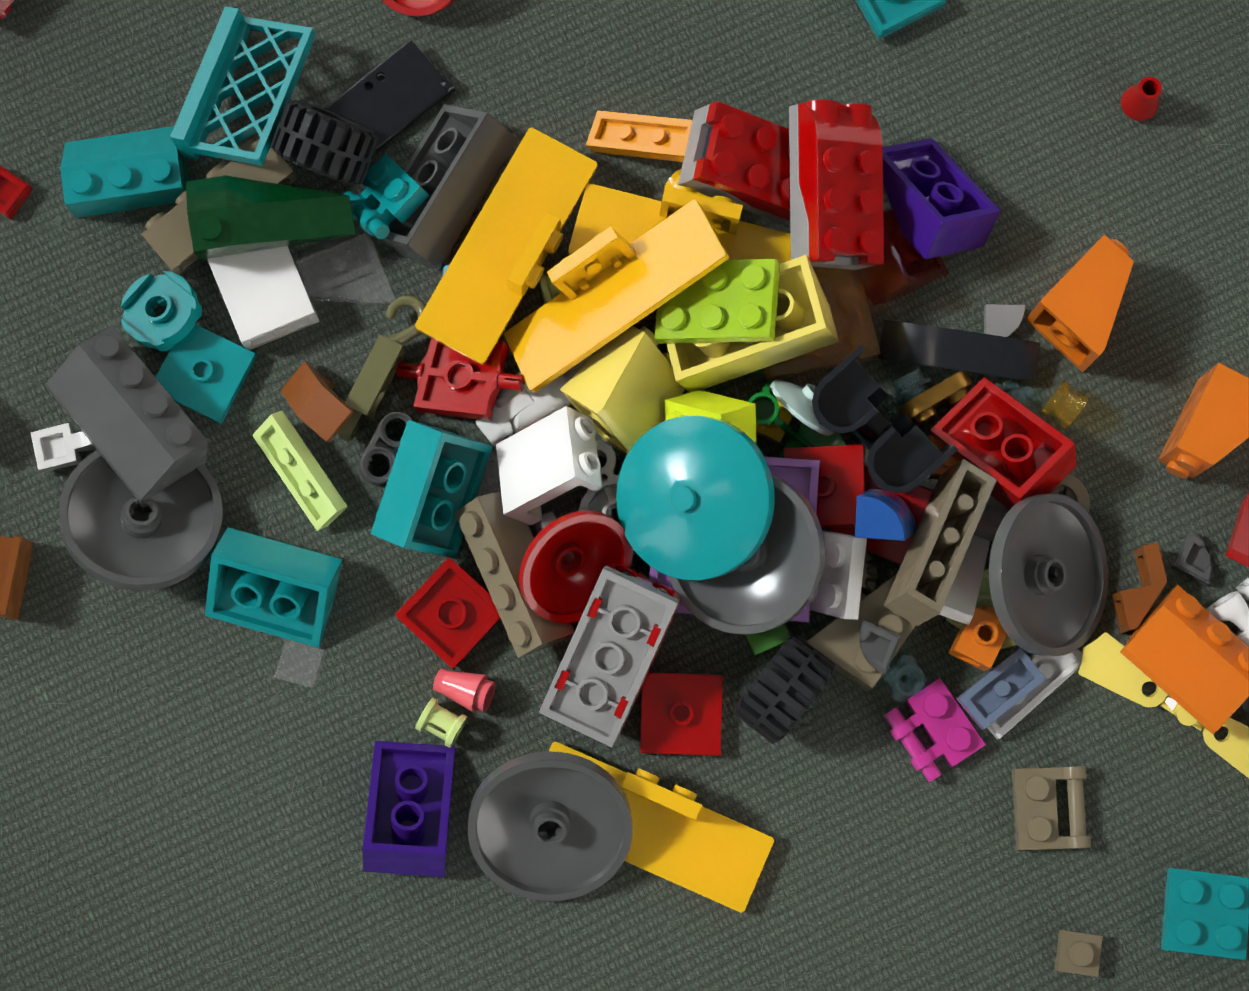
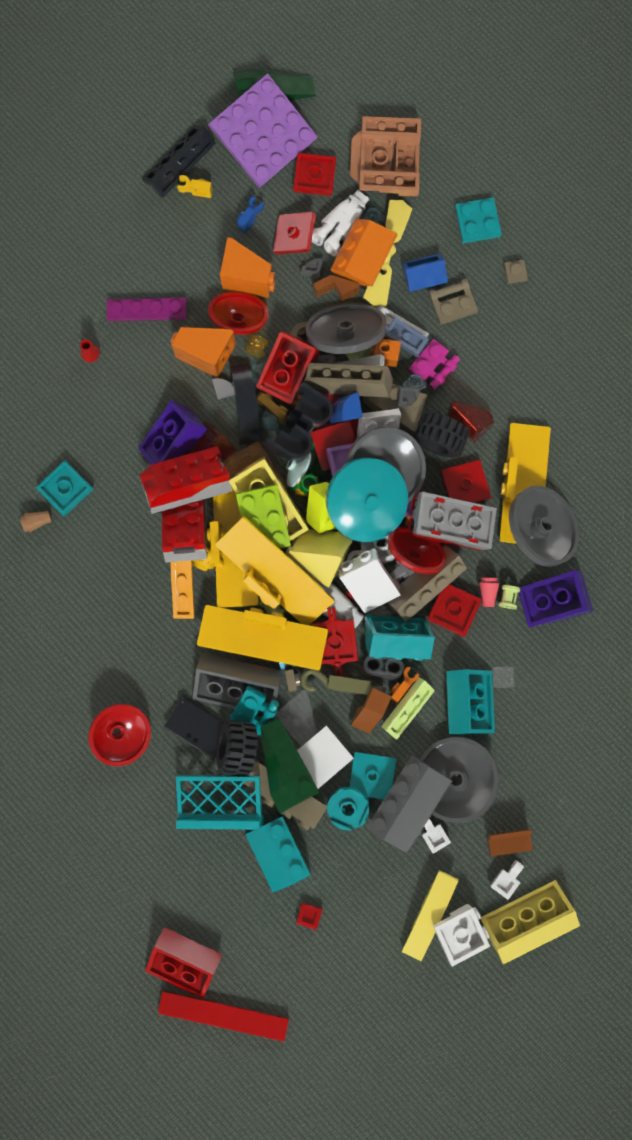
camera: 105 degrees left, 0 degrees up
(338, 466) = (400, 689): none -> orange plate
(416, 280) = (292, 680): none -> dark tan plate
(800, 765) = (472, 417): none -> clear red slope
(1125, 770) = (424, 272): none -> blue brick
(1139, 385) = (238, 312): none -> red dish
(1196, 227) = (147, 309): none -> magenta plate

